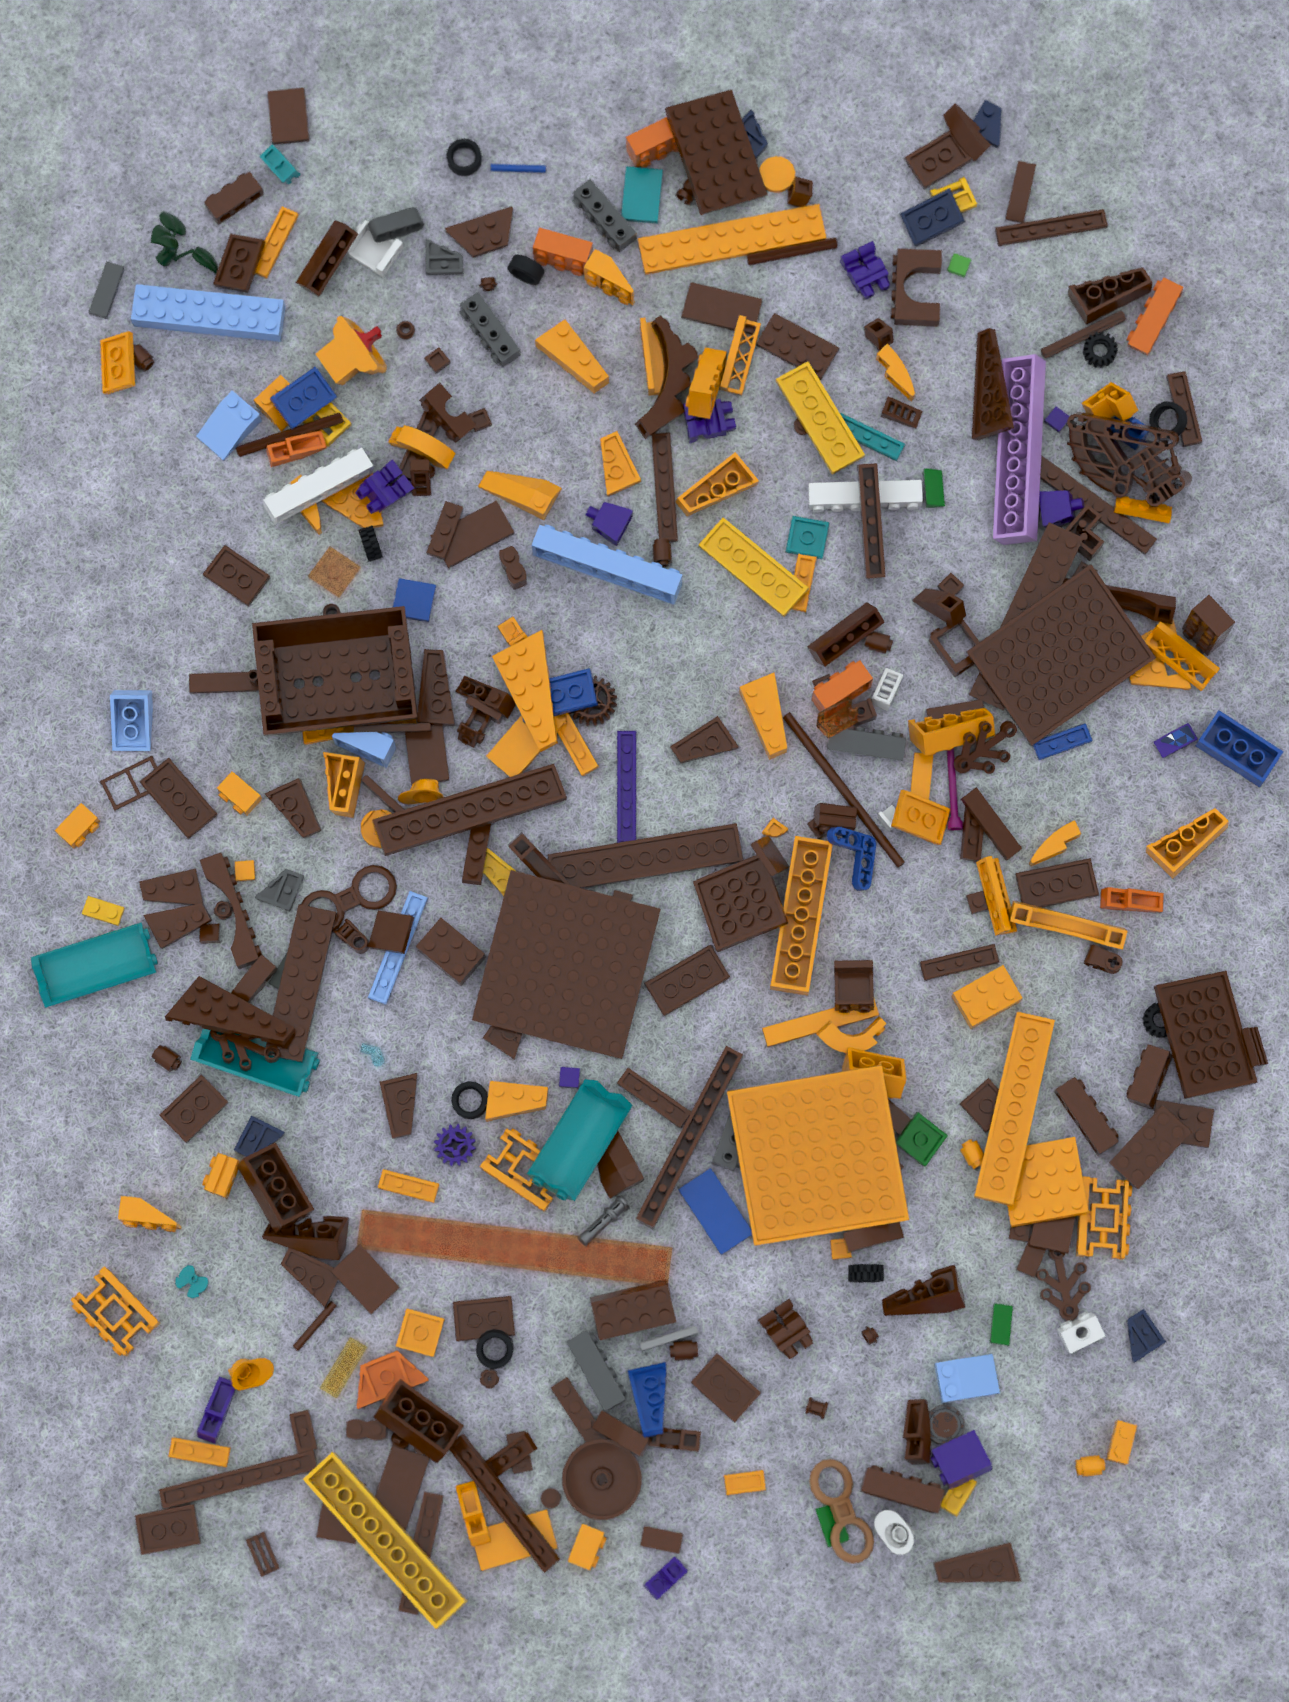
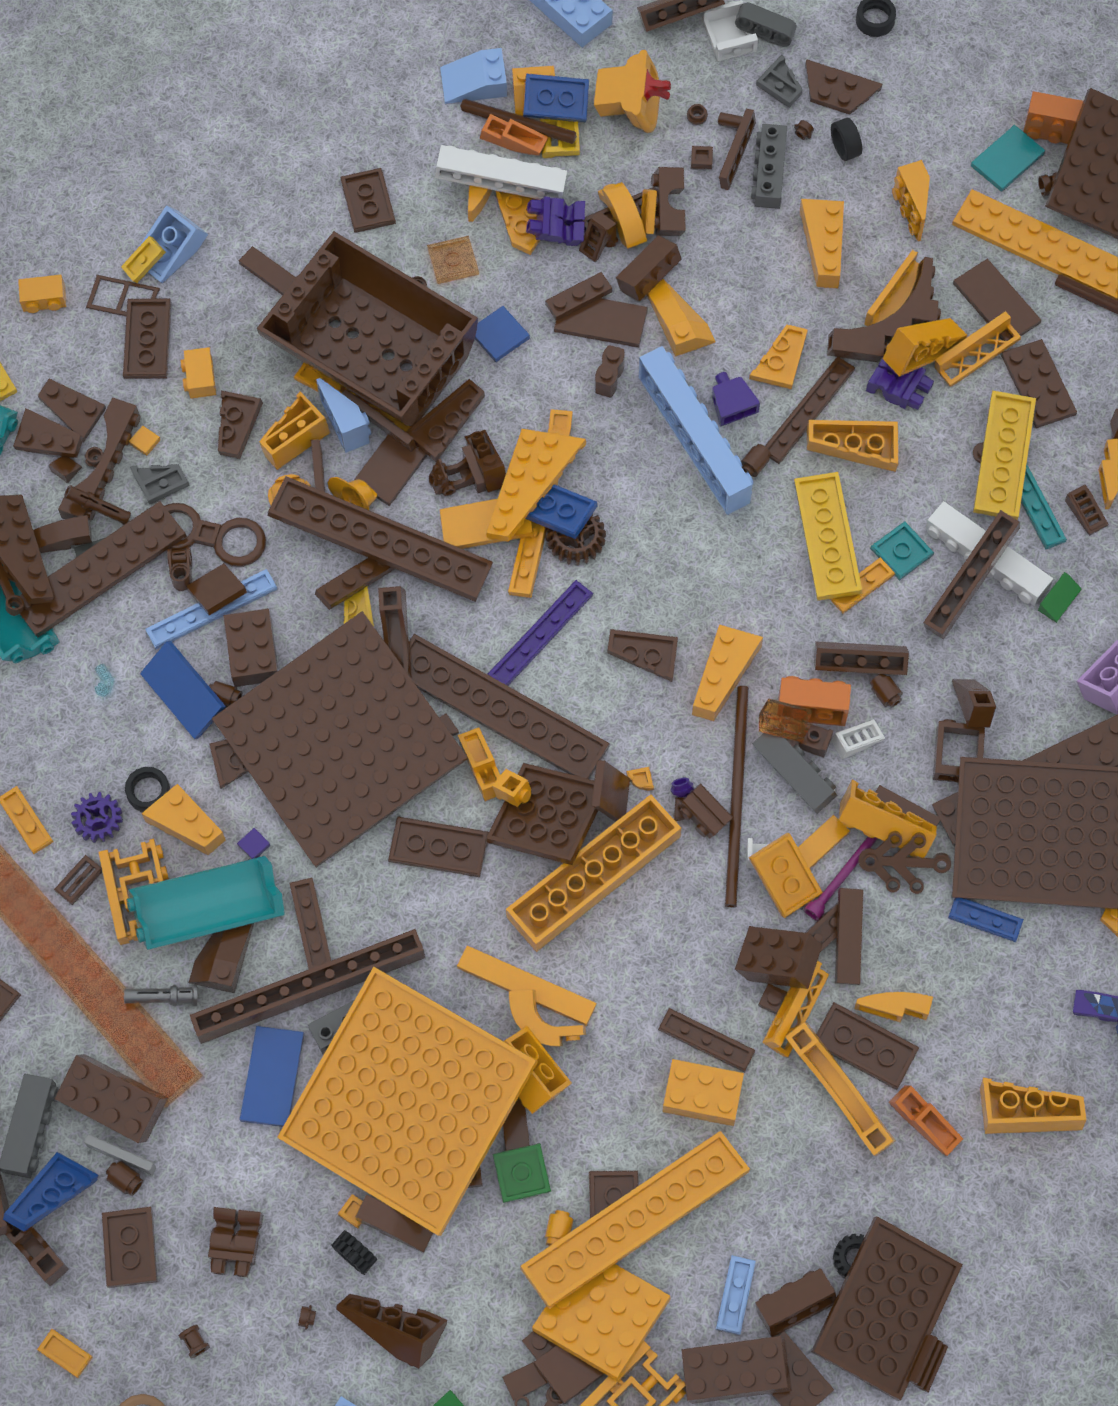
camera: 40 degrees right, 10 degrees down
(125, 745) = (143, 259): none -> yellow plate
(261, 941) = (88, 500): none -> reddish brown pin
(370, 543) = (503, 256): black tyre -> none
(399, 1103) = (85, 741): reddish brown wing -> none
(432, 1017) = (182, 689): none -> blue tile
(439, 430) = (648, 210): none -> light orange tile
(445, 311) = (745, 126): none -> reddish brown piece
(461, 997) = (226, 693): none -> reddish brown brick
(474, 472) = (649, 268): none -> reddish brown brick
(481, 419) = (695, 232): reddish brown tile -> none
(487, 1194) = (59, 889): none -> reddish brown tile
(518, 168) = (916, 59): blue bar -> none
(561, 251) = (889, 143): orange brick -> none
(604, 215) = (958, 149): dark grey brick -> none
(668, 903) = (480, 761): none -> light orange slope
(700, 902) = (512, 788): none -> light orange brick
(805, 813) = (681, 787): none -> dark purple plate
(854, 986) = (586, 977): reddish brown panel -> none
(860, 847) = (704, 857): blue beam -> none
(951, 584) = (1001, 694): reddish brown plate -> none
(962, 874) = (778, 957): none -> reddish brown brick
(1086, 1115) = (701, 1287): reddish brown brick -> none
(1101, 959) = (846, 1149): reddish brown piece -> none
(1109, 1102) = (735, 1295): none -> light blue tile

